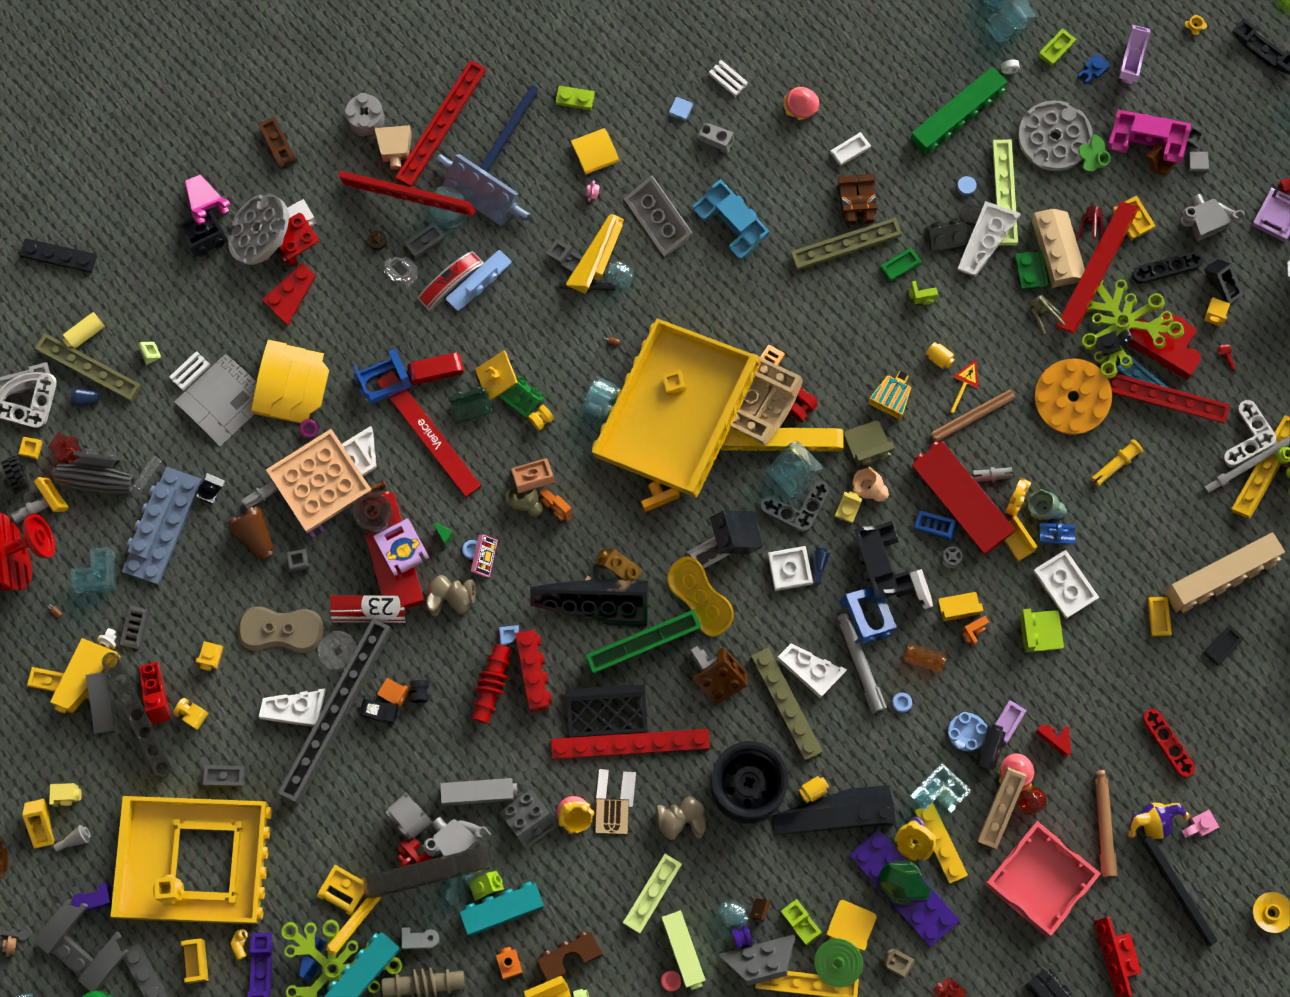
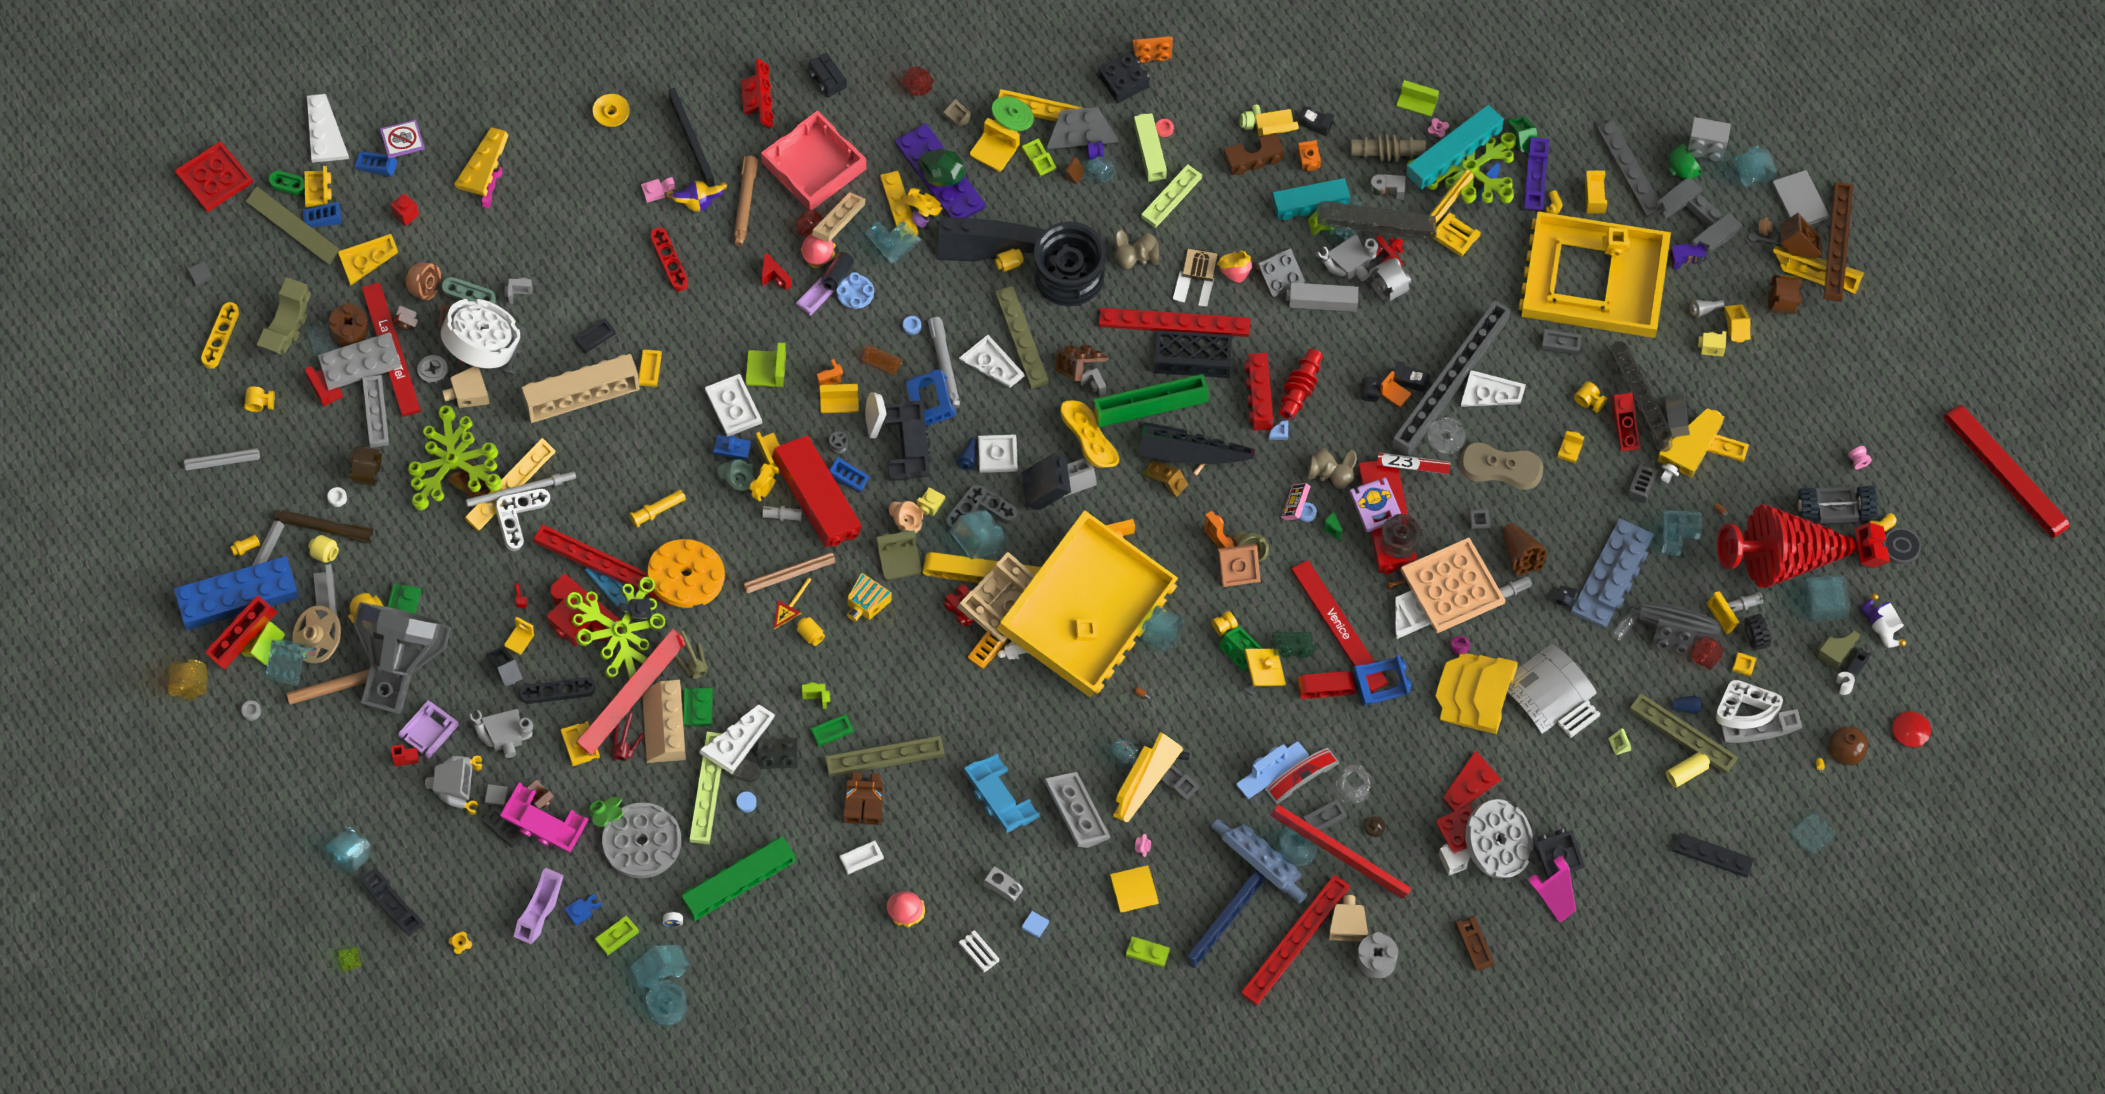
camera: 175 degrees left, 10 degrees down
(1242, 162) = (453, 781): none -> light grey torso

